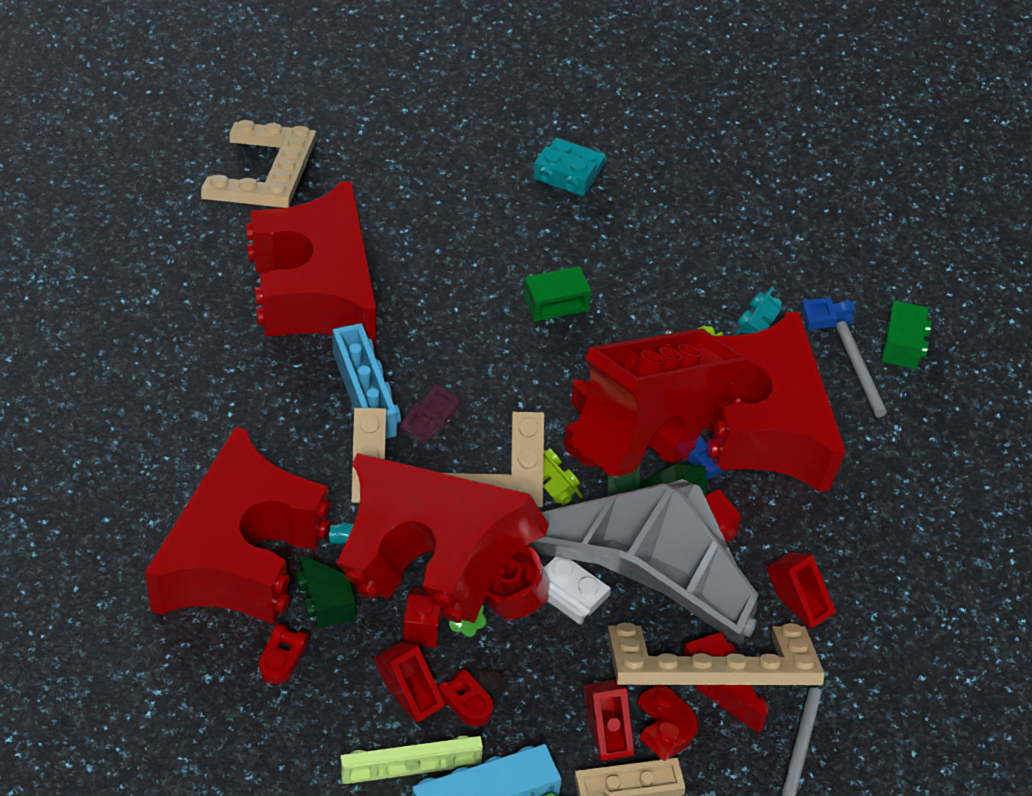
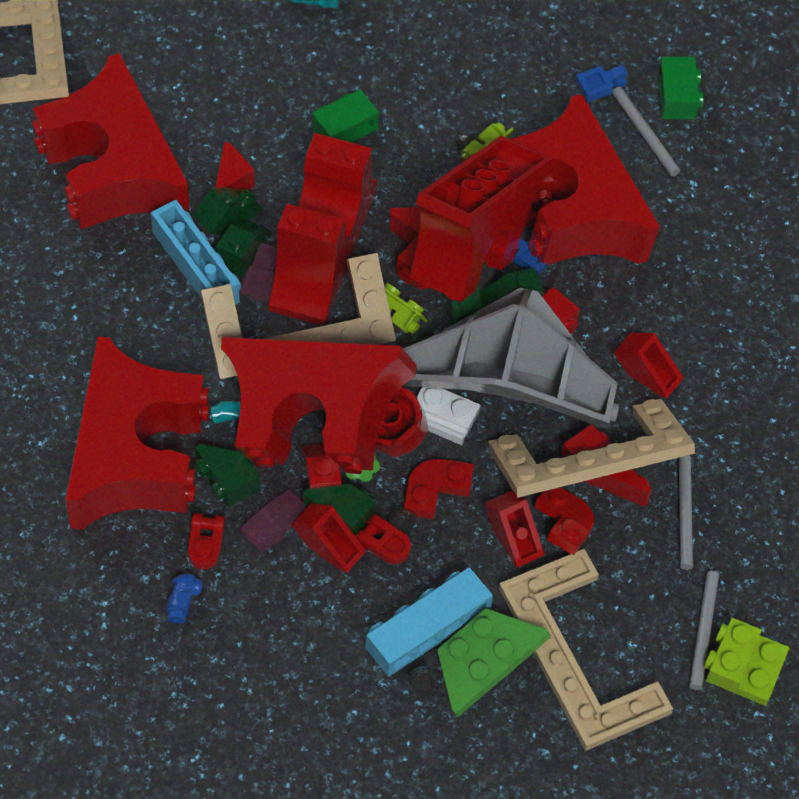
camera: 15 degrees left, 10 degrees up
(233, 705) = (179, 601): none -> blue arm
(354, 652) = (273, 520): none -> clear pink slope
(411, 760) = (315, 625): yellowish green plate -> none
(412, 347) = (226, 207): none -> dark green slope
(413, 381) = (241, 244): none -> dark green slope
(428, 319) = (234, 170): none -> red slope
(440, 650) = (351, 503): none -> dark green slope
(503, 377) = (322, 229): none -> red piece
(539, 649) = (436, 477): none -> red plate
(763, 307) = (540, 89): teal hinge -> none

